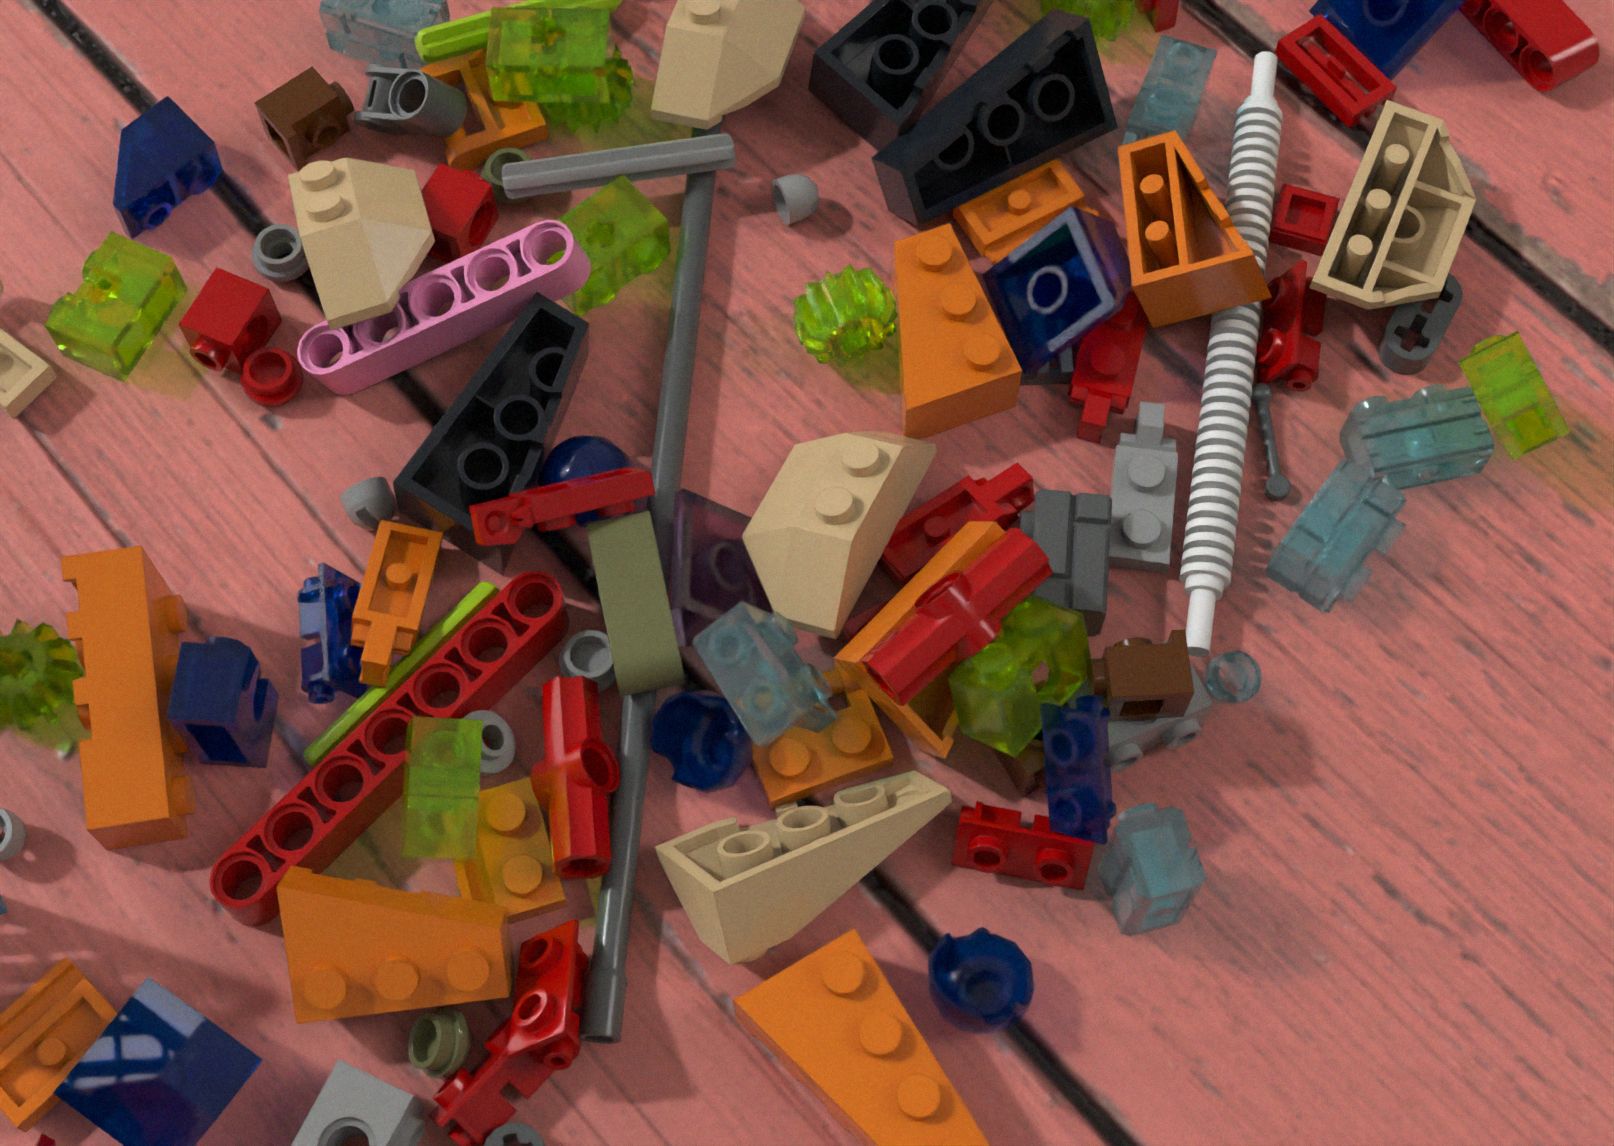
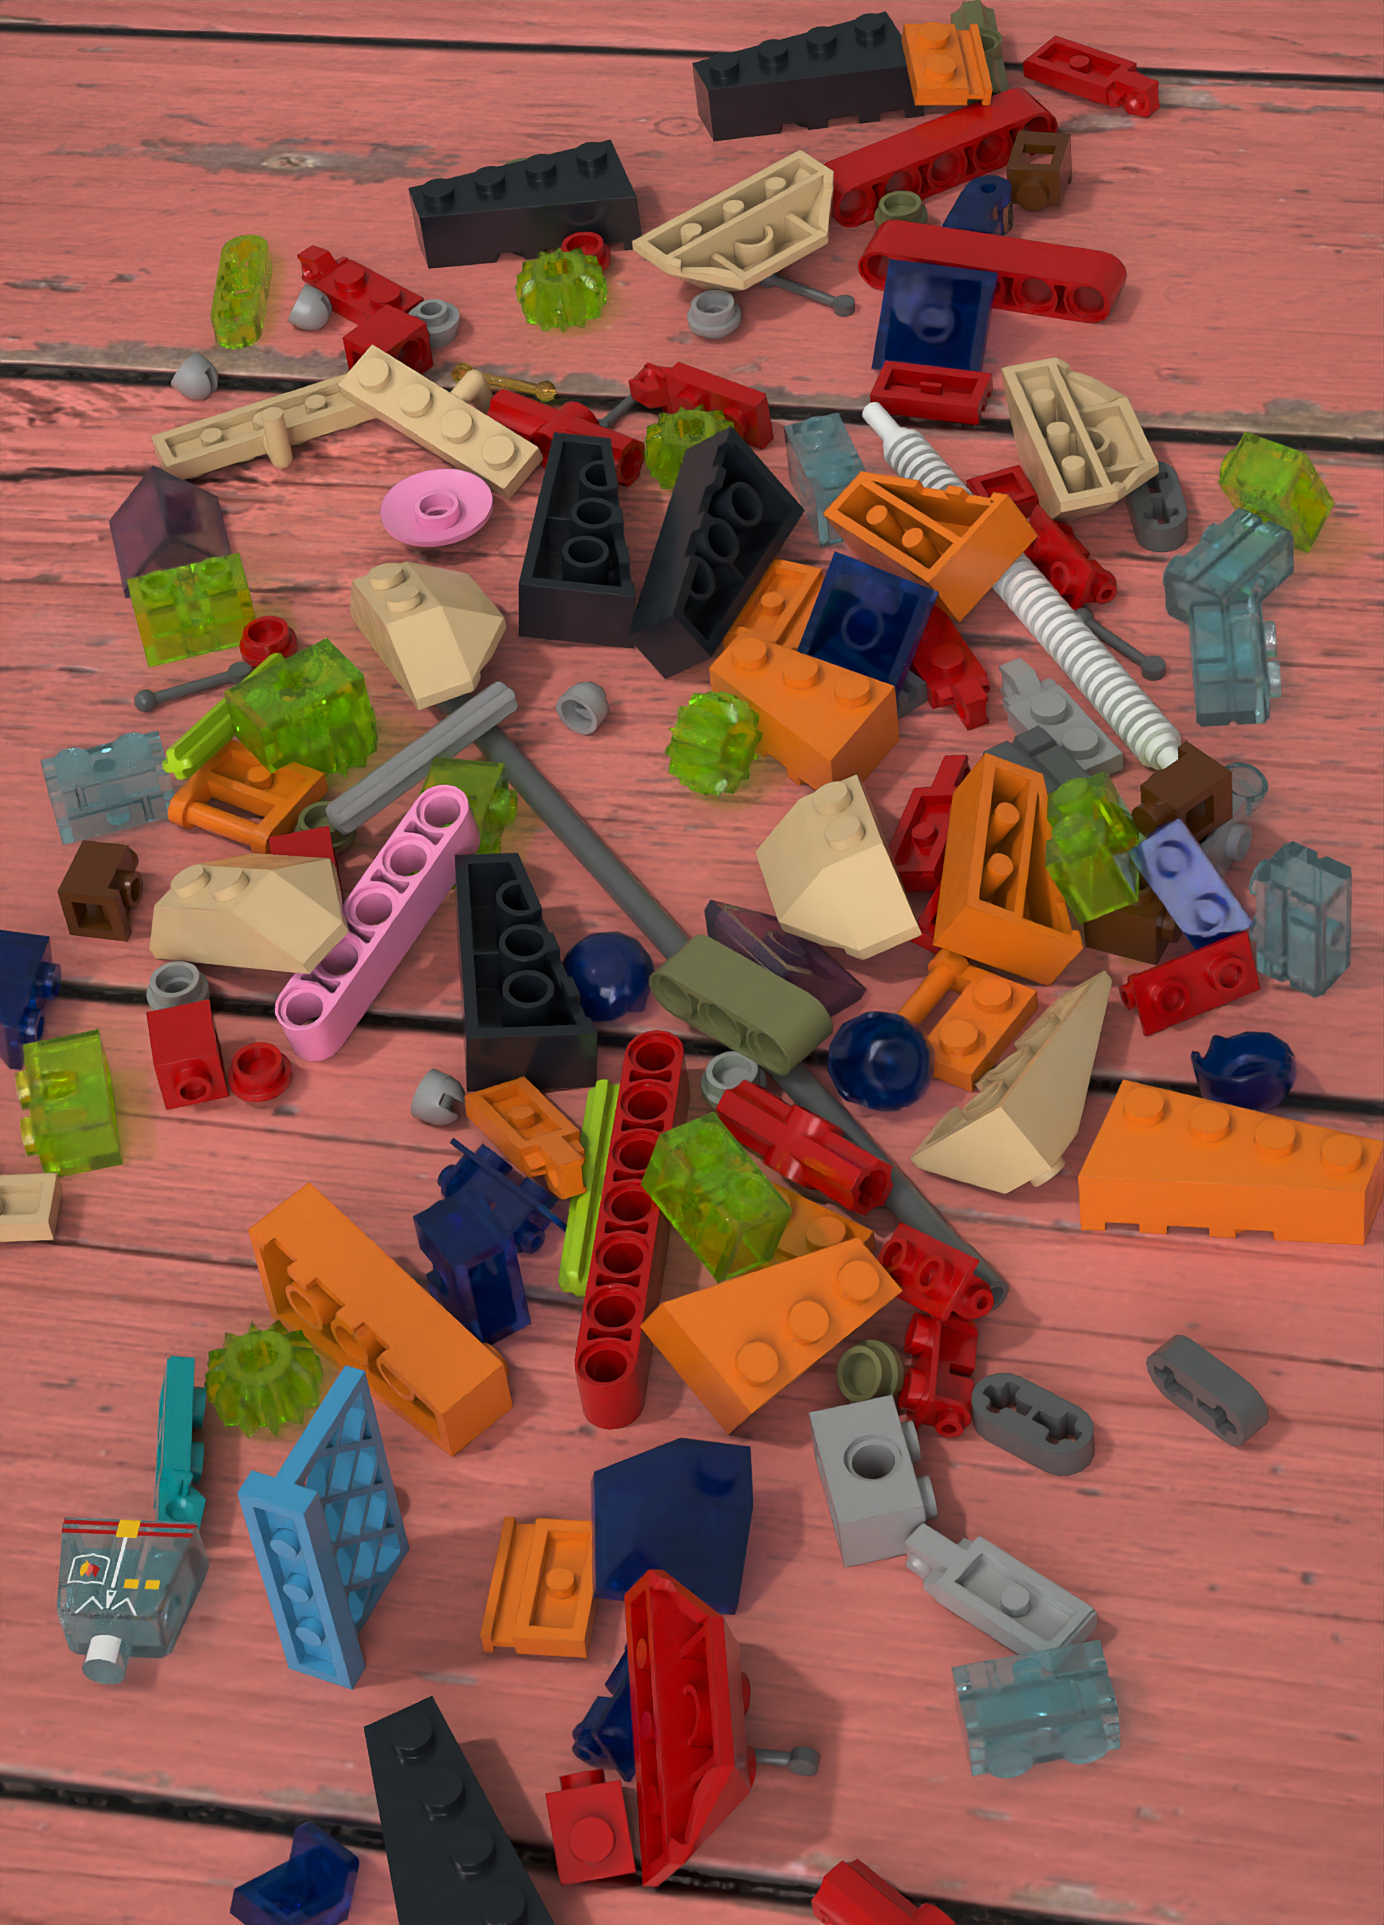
camera: 30 degrees left, 20 degrees down
(410, 103) = (179, 822): dark grey piece -> none
(556, 504) = (619, 971): red hinge -> none
(763, 674) = (892, 977): clear light blue bracket -> none
(957, 616) = (1015, 823): red piece -> none

